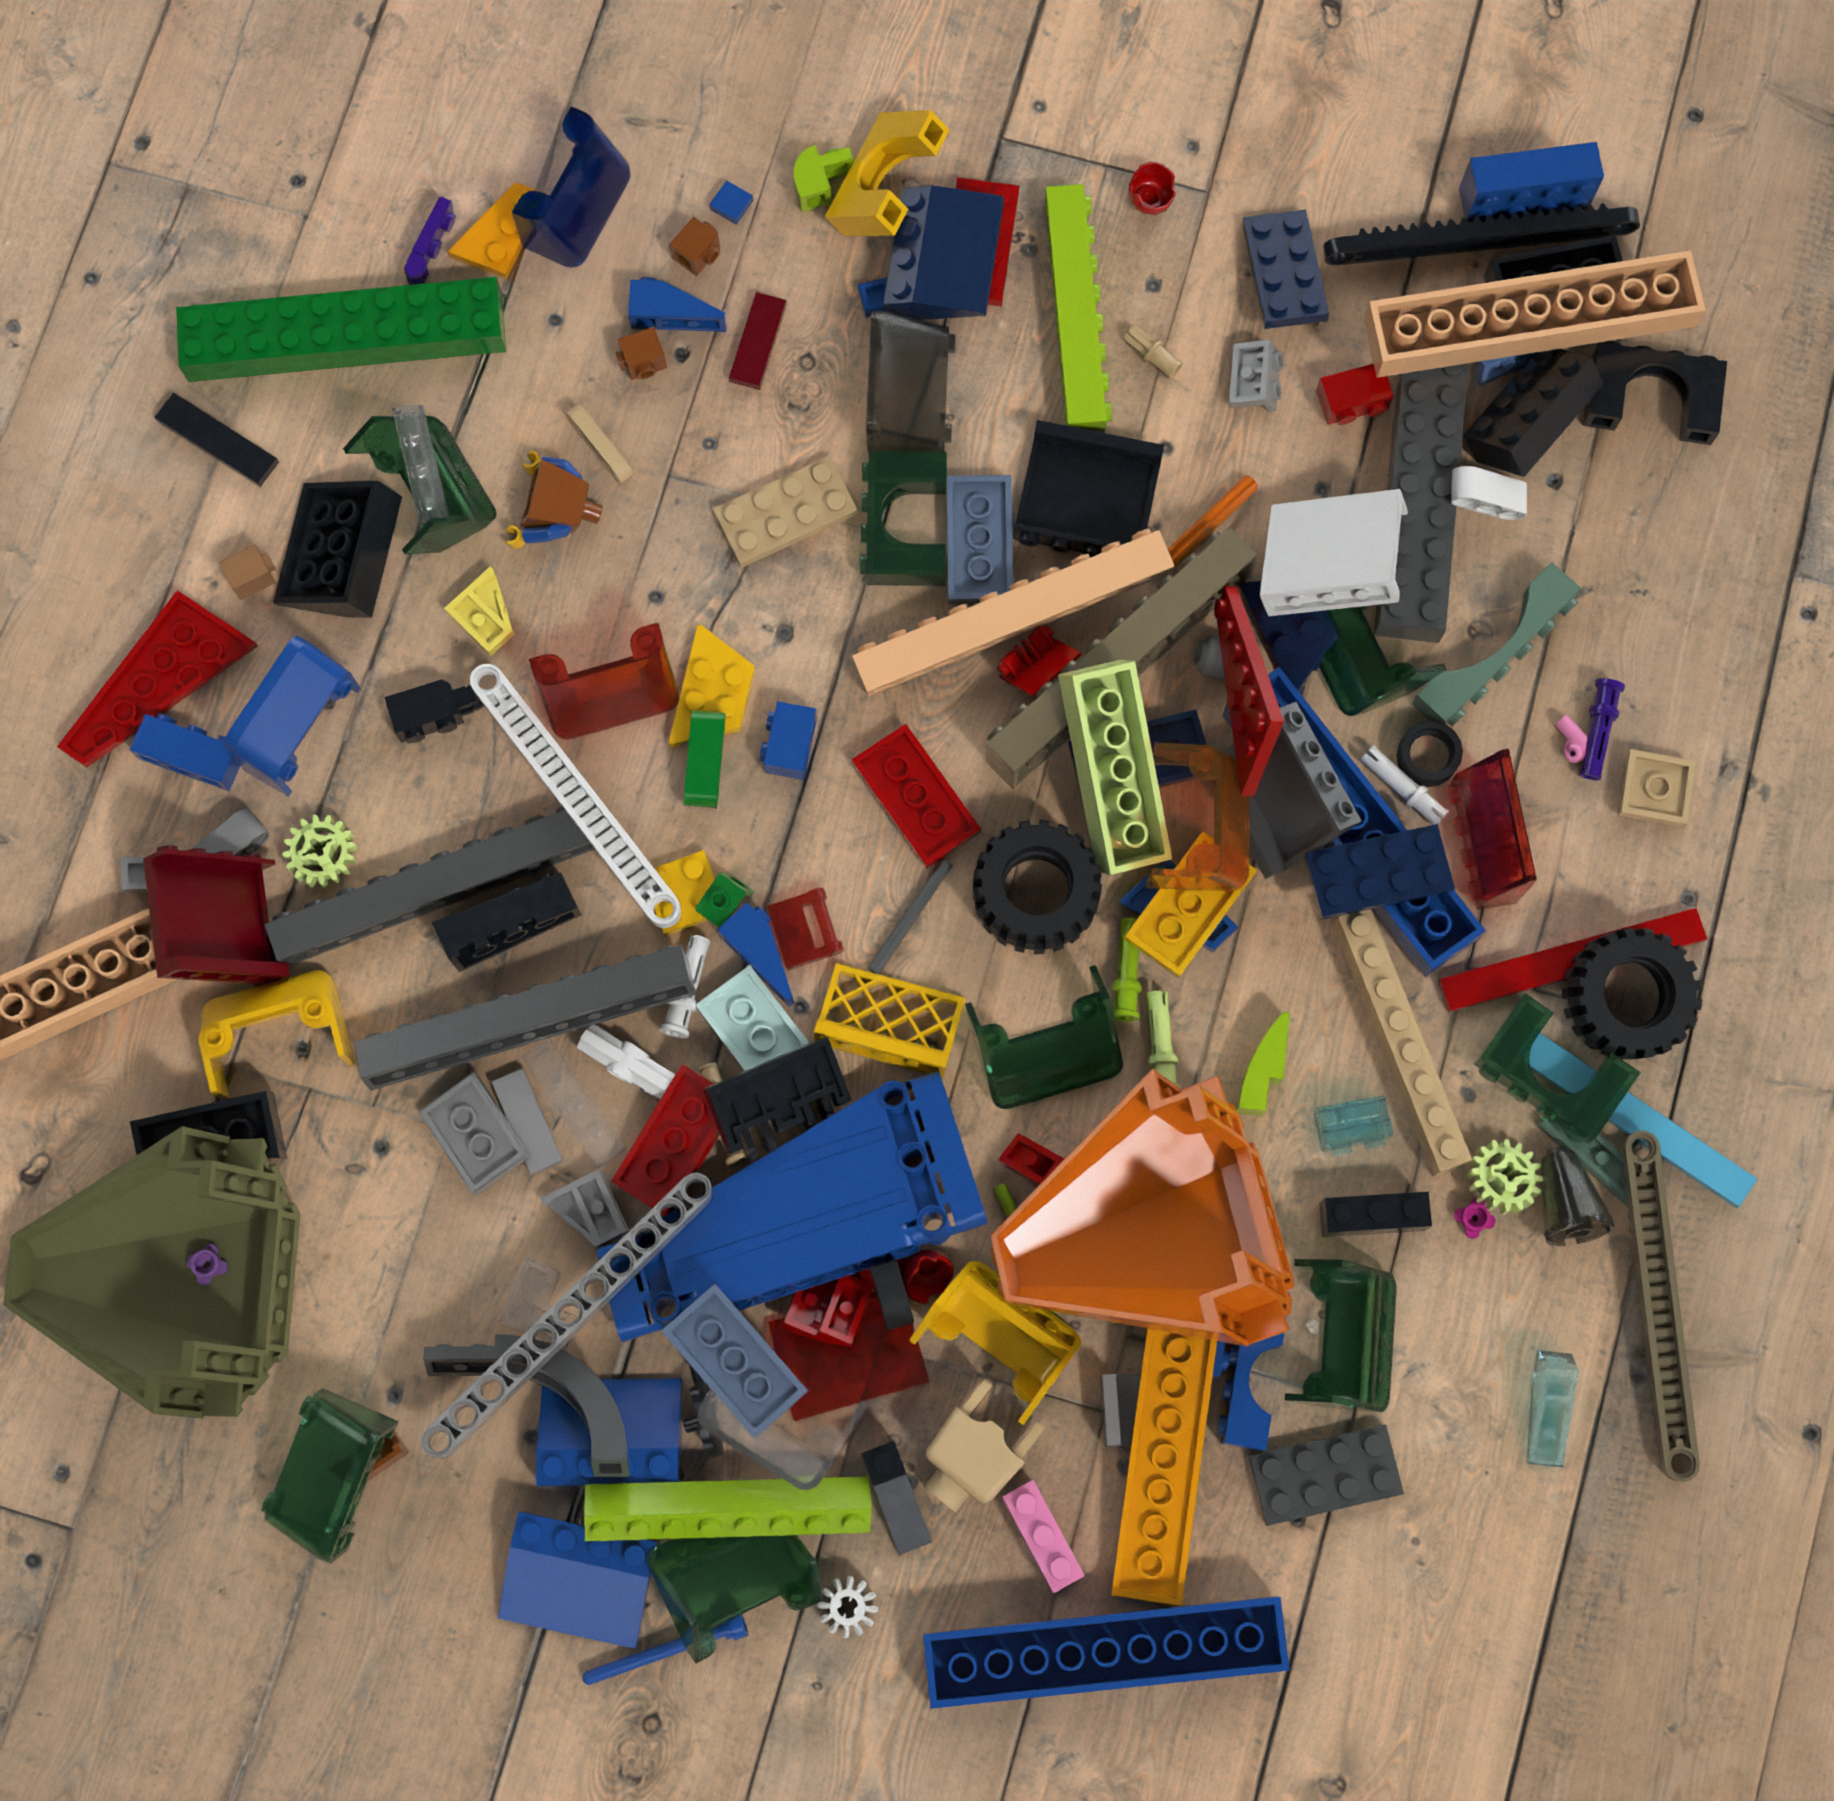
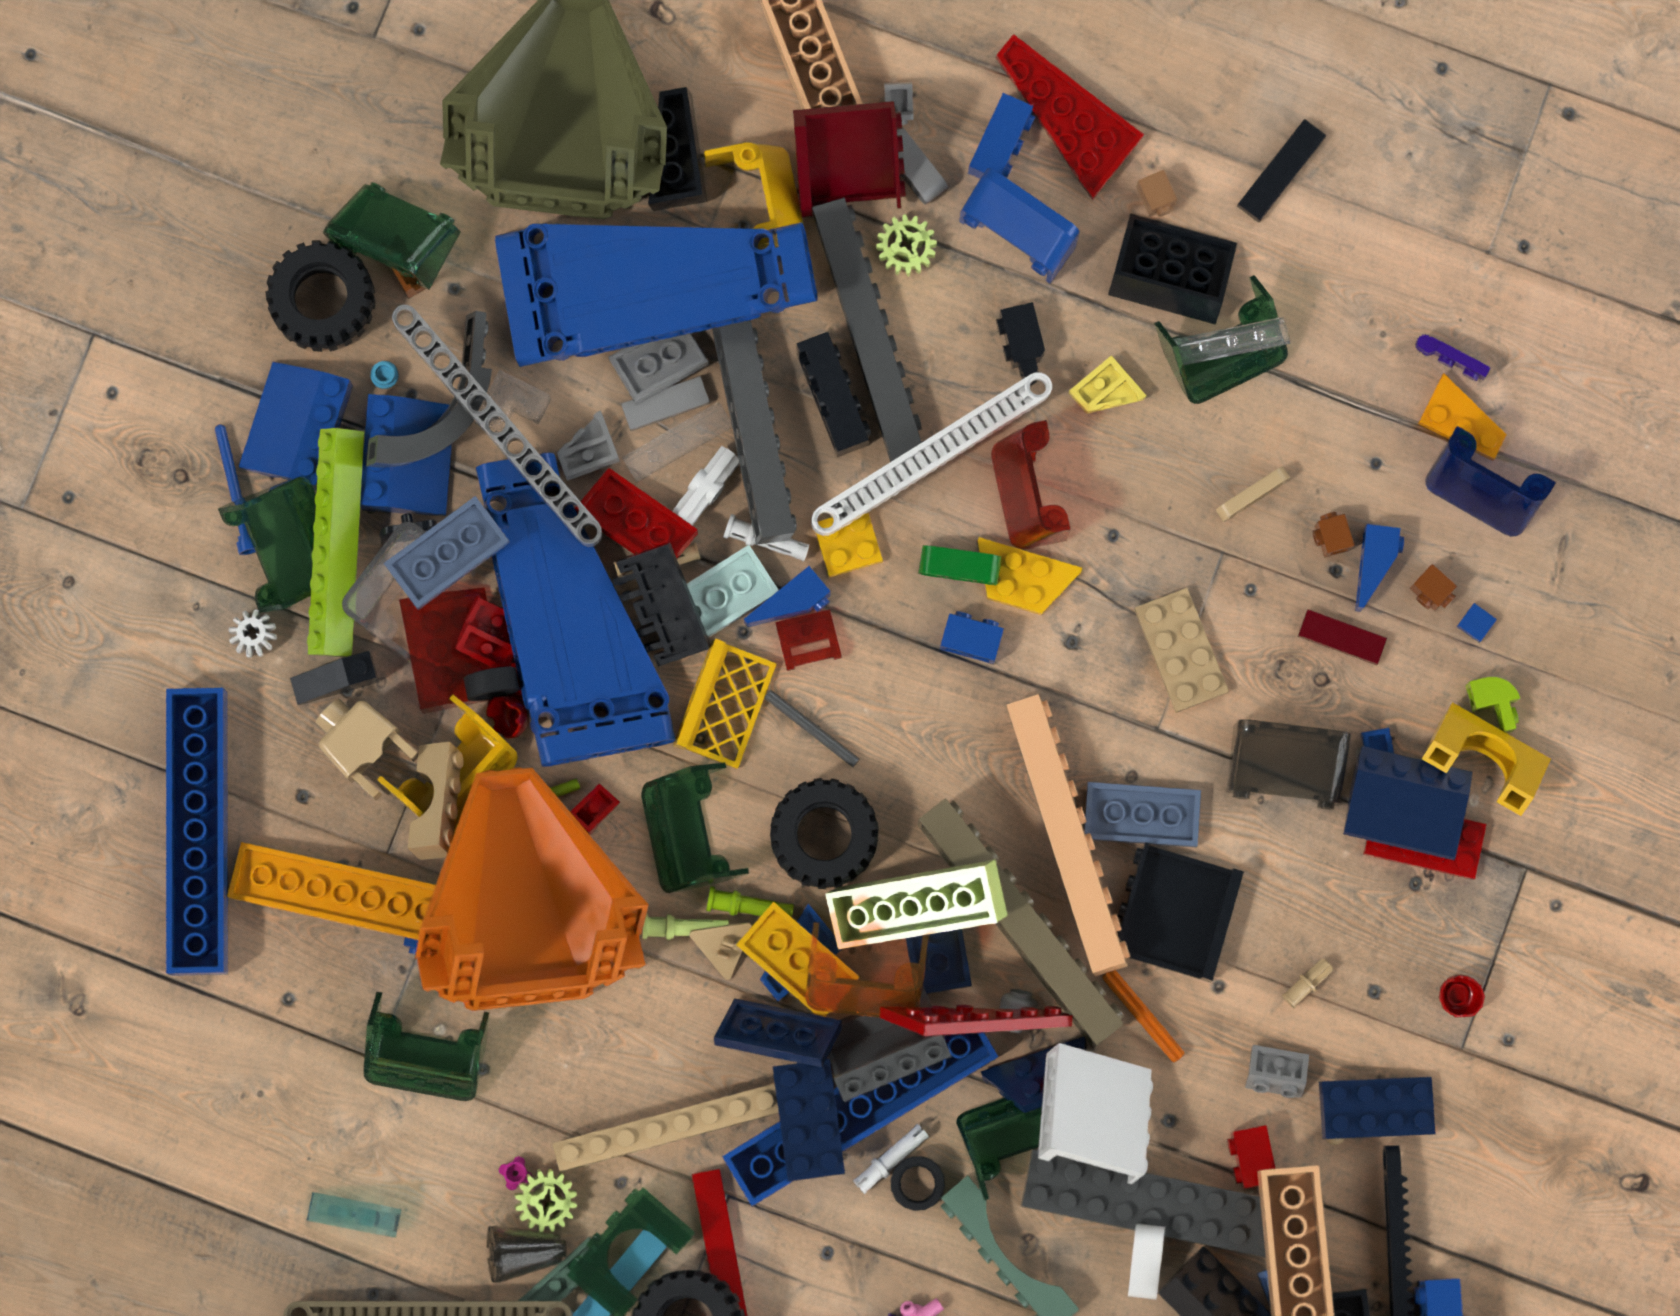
camera: 90 degrees right, 5 degrees up
(197, 1264) = (572, 137): medium lavender plate -> none
(340, 329) = (1373, 279): green brick -> none
(364, 1552) = (305, 263): none -> black tyre
(380, 1155) = (643, 283): none -> blue panel
(508, 1472) = (384, 375): none -> medium azure plate
(553, 502) = (1200, 452): dark orange torso -> none
(722, 898) = (838, 573): green bracket -> none
(888, 478) = (1202, 737): clear green arch -> none
(916, 796) = (915, 741): red plate -> none
(1039, 664) = (1022, 854): red hinge -> none
(1042, 1536) = (291, 791): bright pink brick -> none
(1076, 307) = (1351, 917): lime brick -> none
(1083, 1347) = (434, 830): none -> tan arch
(1119, 1407) = (388, 861): light grey panel -> none
(1178, 997) = (720, 945): none -> tan piece
(1245, 1421) = (366, 964): blue arch -> none
(1264, 1068) = (656, 1010): lime slope -> none
(1279, 917) = (778, 1032): none -> dark blue plate
(1326, 1475) = (319, 1026): dark grey plate -> none
(1353, 1125) = (601, 1080): clear light blue brick -> none
(1375, 1214) = (524, 1088): black brick -> none
(1492, 832) = (838, 1221): clear red slope -> none

